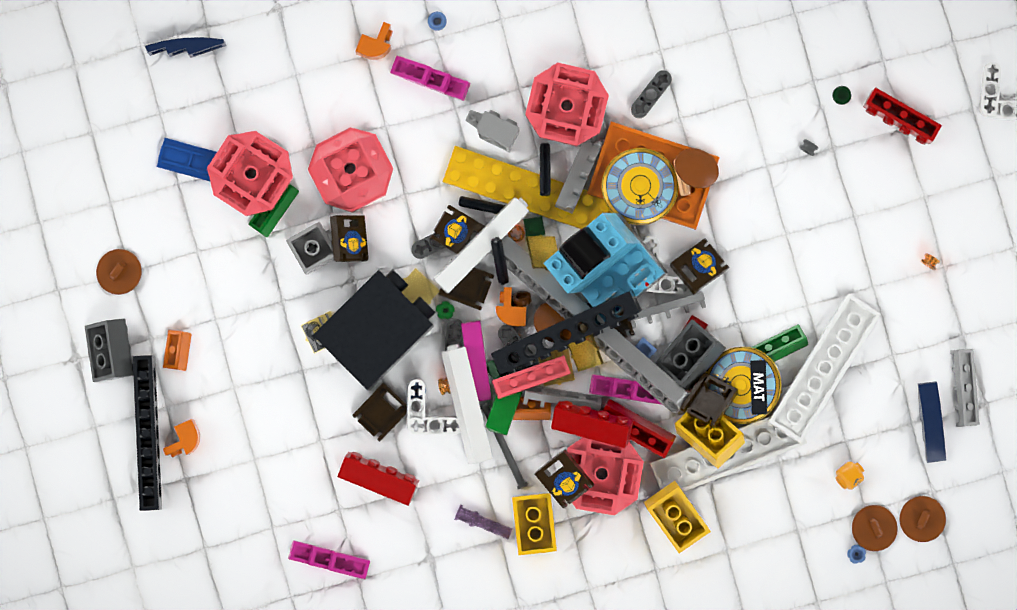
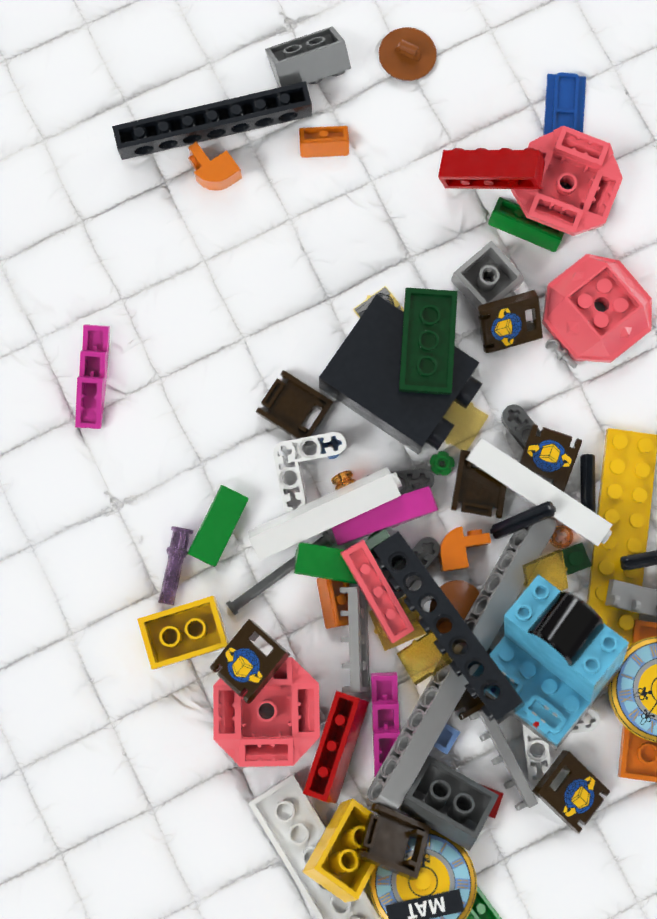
camera: 75 degrees right, 5 degrees down
(229, 228) = (491, 169): none -> red brick
(356, 304) = (428, 341): none -> dark green plate
(378, 478) = (207, 418): red brick -> none
(379, 203) = (562, 354): none -> light grey hand
(460, 485) = (218, 526): none -> green slope
(521, 298) = (477, 560): reddish brown tile -> none
(592, 424) = (330, 685): red brick -> none
(677, 517) = (226, 826): yellow brick -> none

